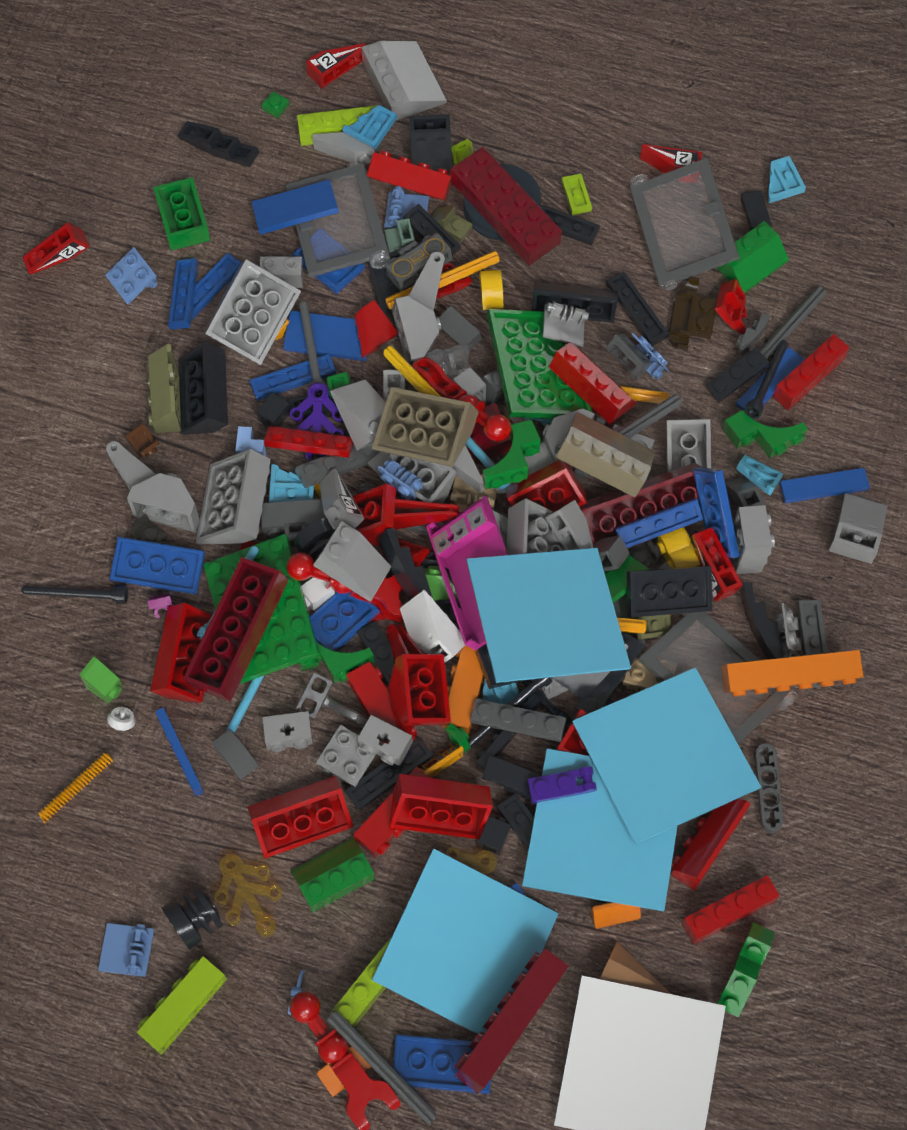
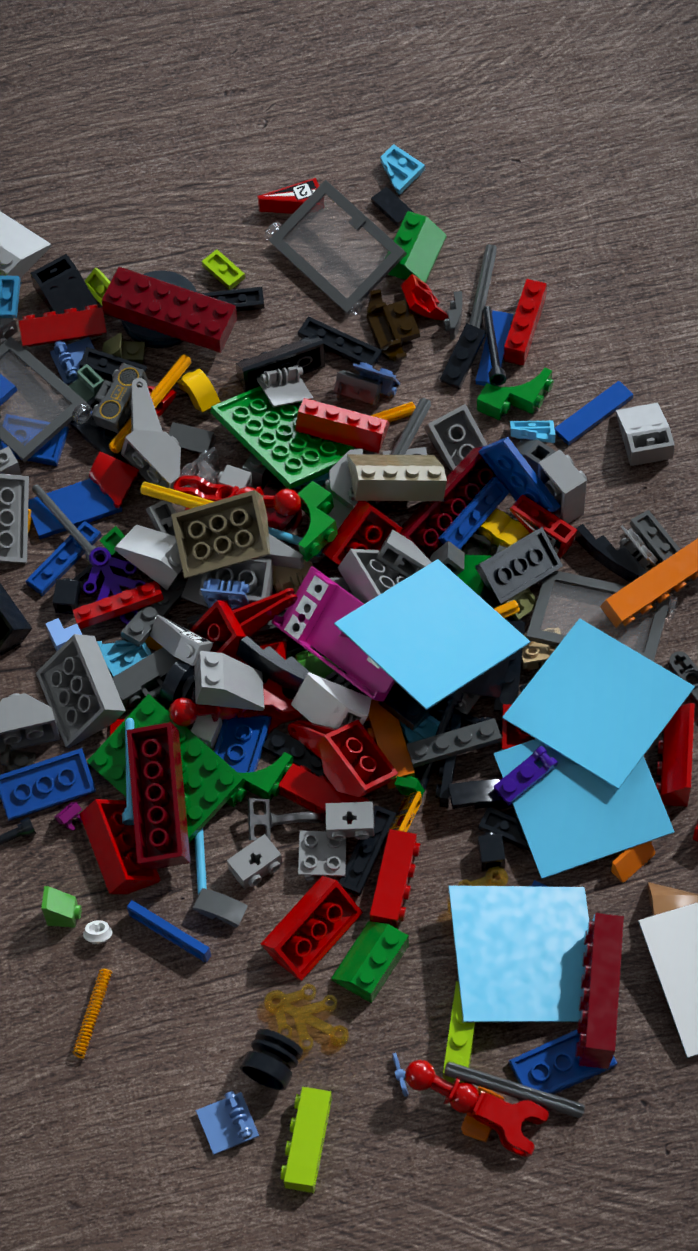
camera: 25 degrees left, 5 degrees down
(440, 806) = (431, 850): red slope -> none

